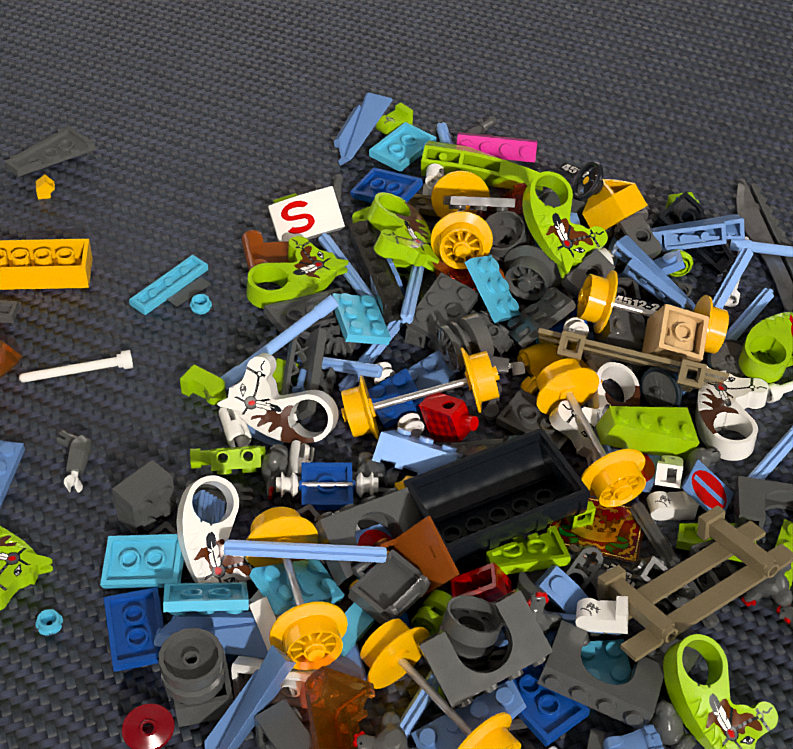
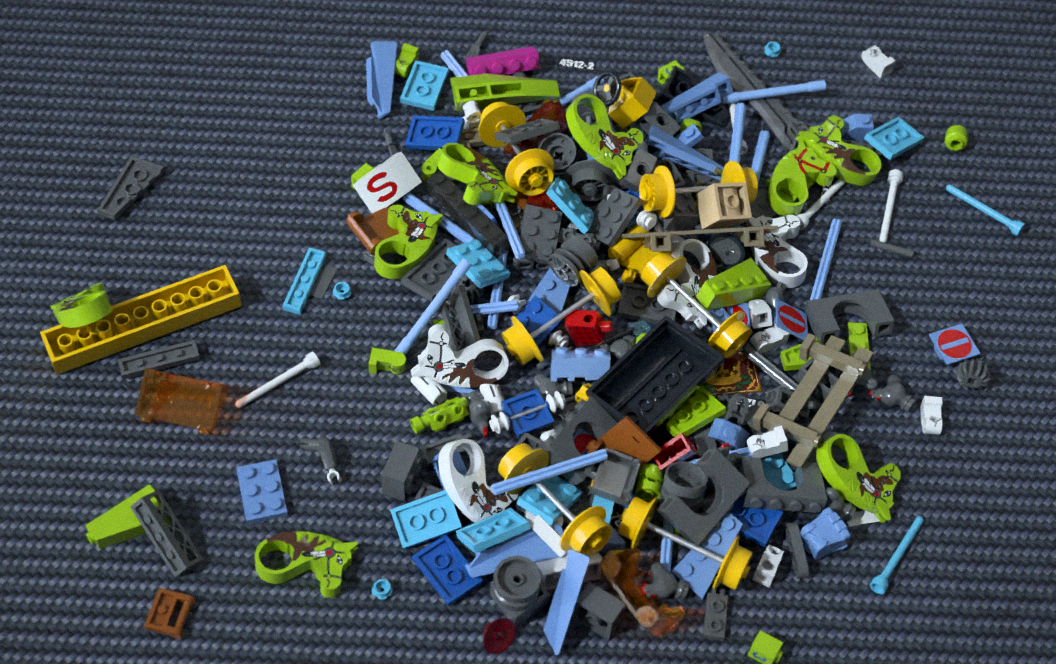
camera: 25 degrees left, 10 degrees up
(44, 187) = (147, 224): yellow piece -> none
(300, 383) = (465, 341): medium blue piece -> none
(638, 302) = (686, 180): sticker -> none

